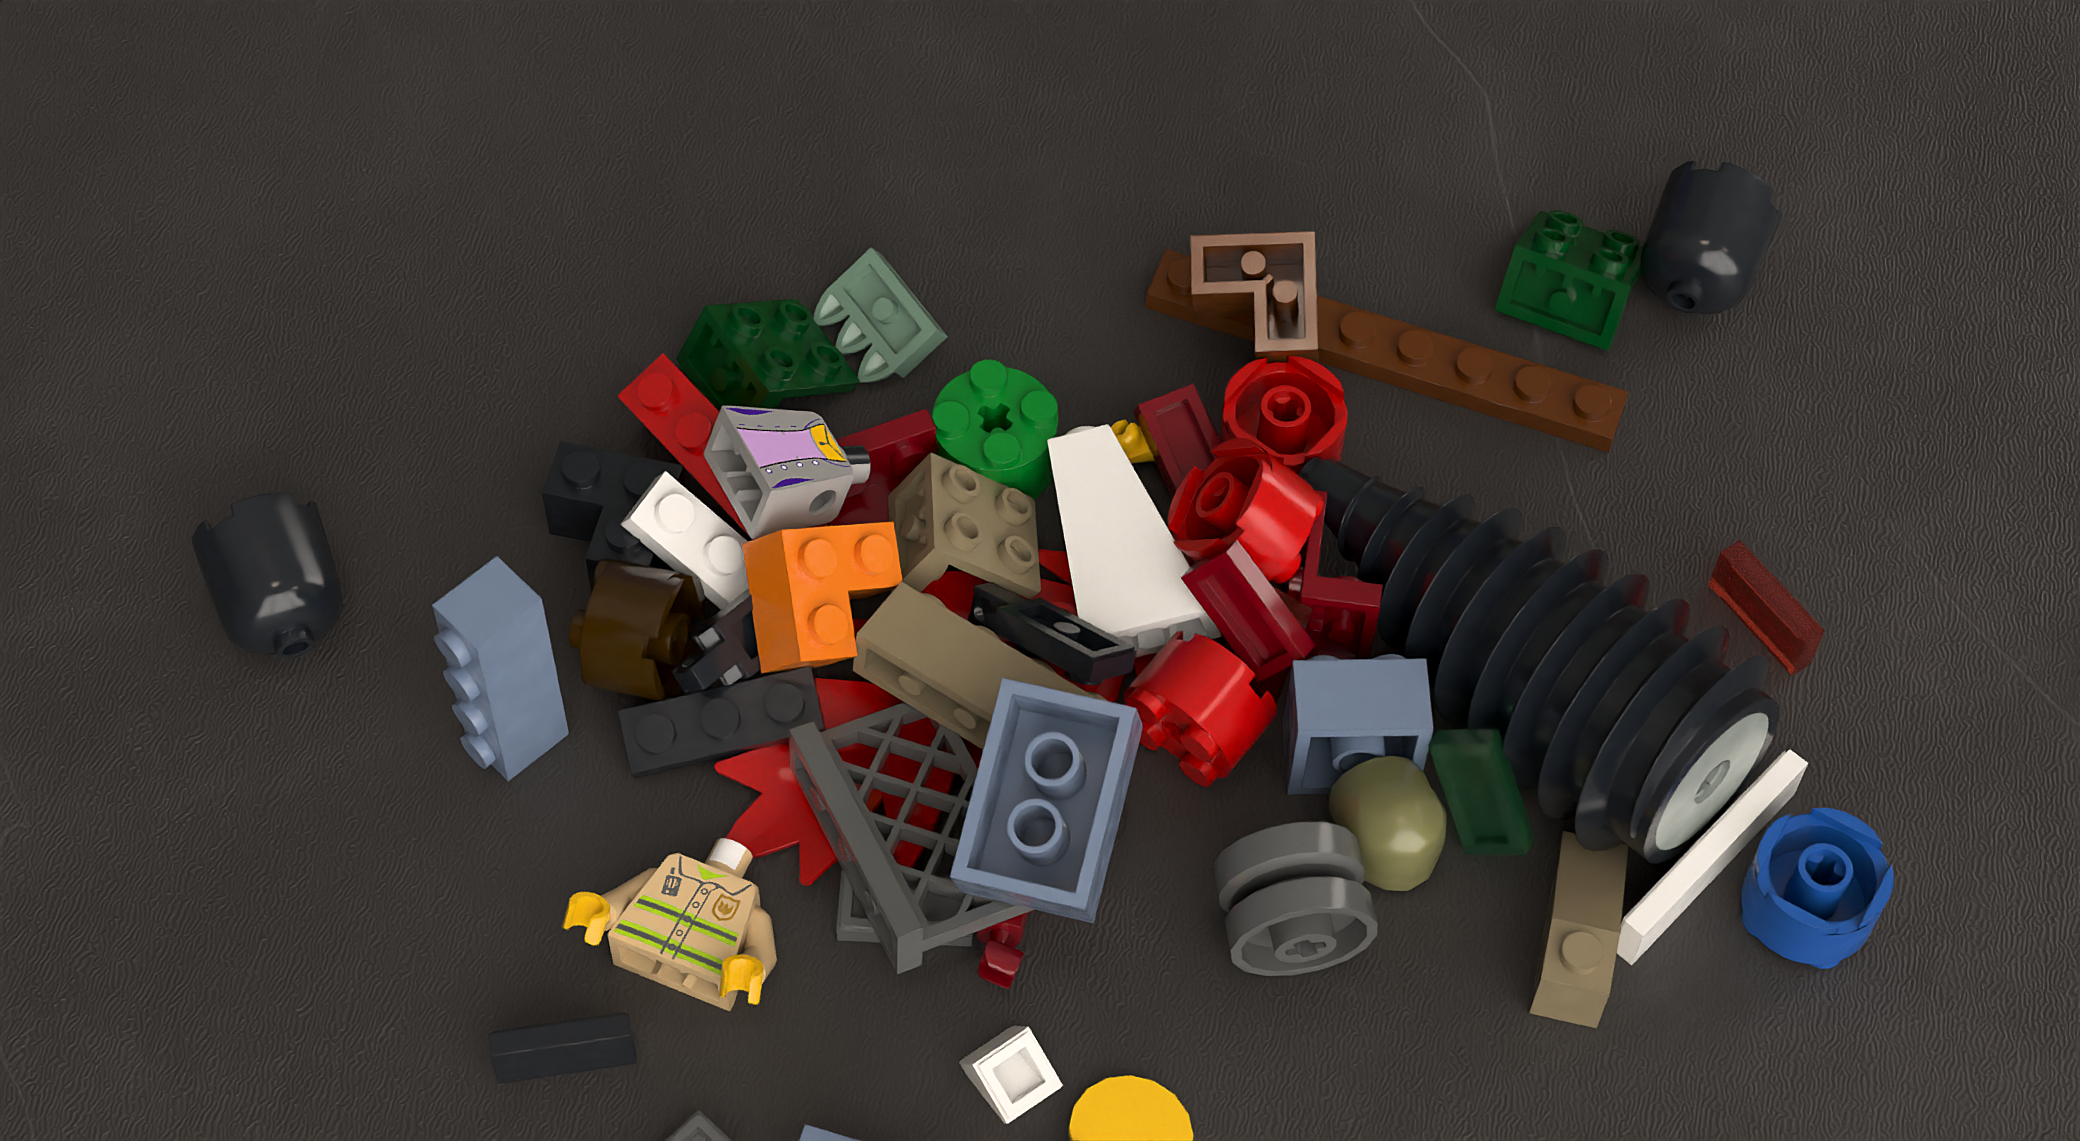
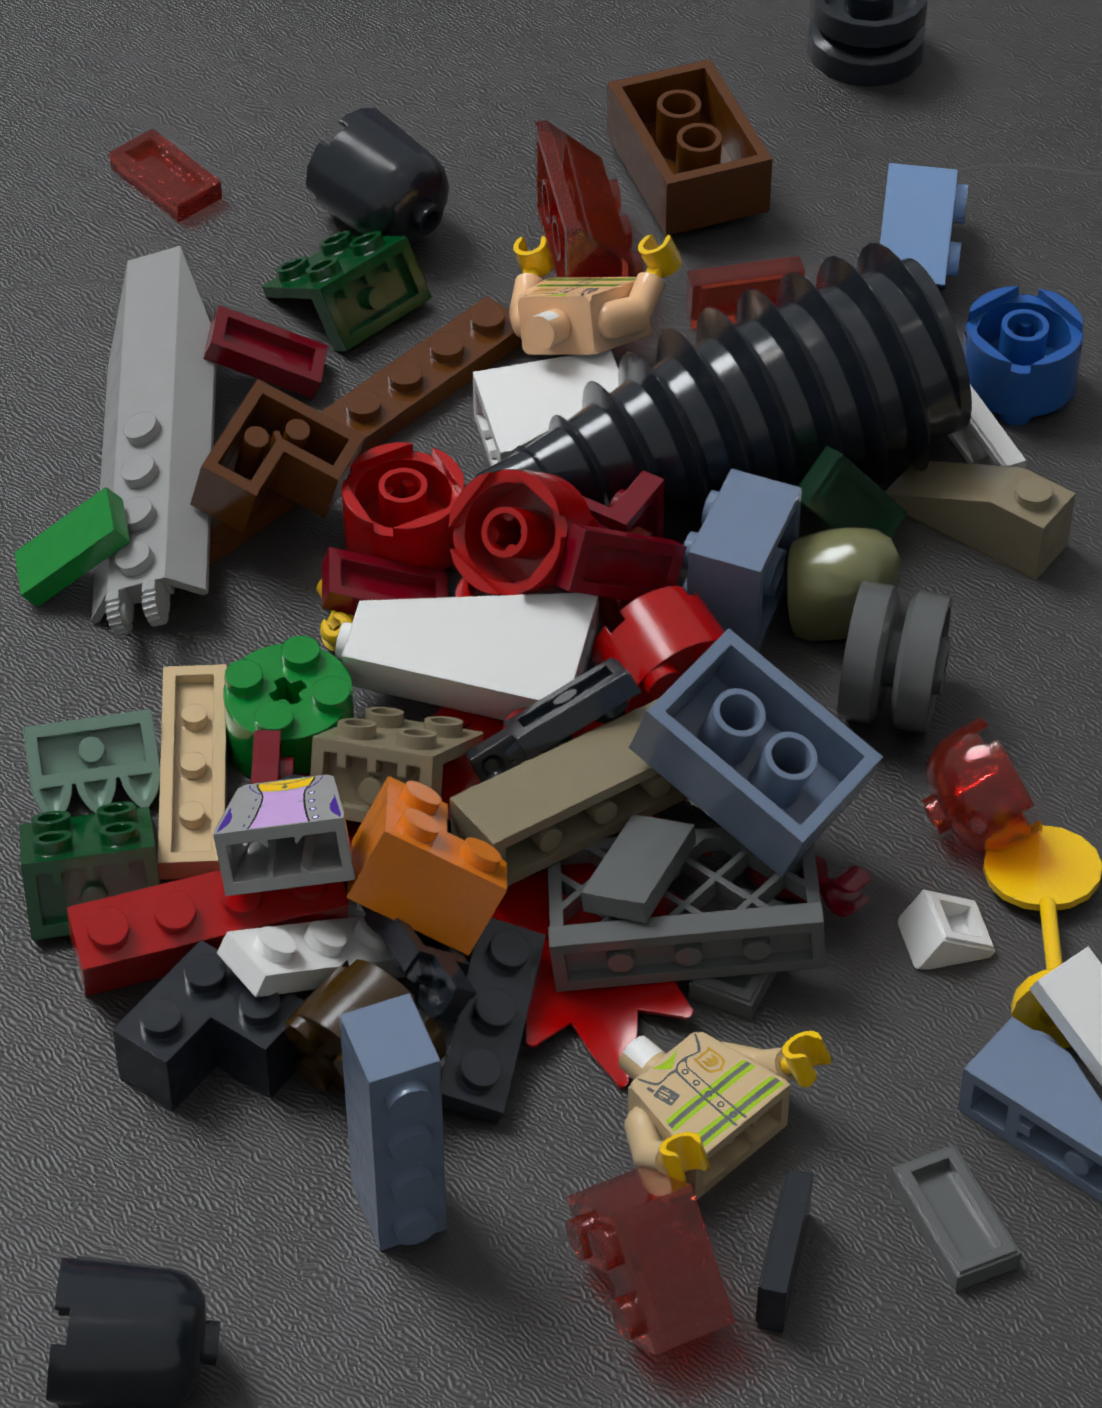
camera: 65 degrees left, 10 degrees down
(490, 933) = (658, 1256): none -> clear red brick
(908, 766) = (638, 868): none -> dark grey tile
(910, 384) = (191, 769): none -> tan plate
(1105, 197) = (72, 547): none -> green tile
(1176, 1038) = (977, 792): none -> clear red cylinder
(1319, 193) = (156, 441): none -> light grey hinge
(1437, 244) = (265, 352): none -> dark red tile
(1498, 475) = (519, 400): none -> white slope
(1622, 463) = (586, 312): none -> light nougat torso
(1643, 79) = (165, 175): none -> clear red tile
(1761, 426) = (580, 209): none -> clear red slope
(1937, 479) = (688, 147): none -> reddish brown brick
(1948, 719) = (920, 217): none -> light blue brick

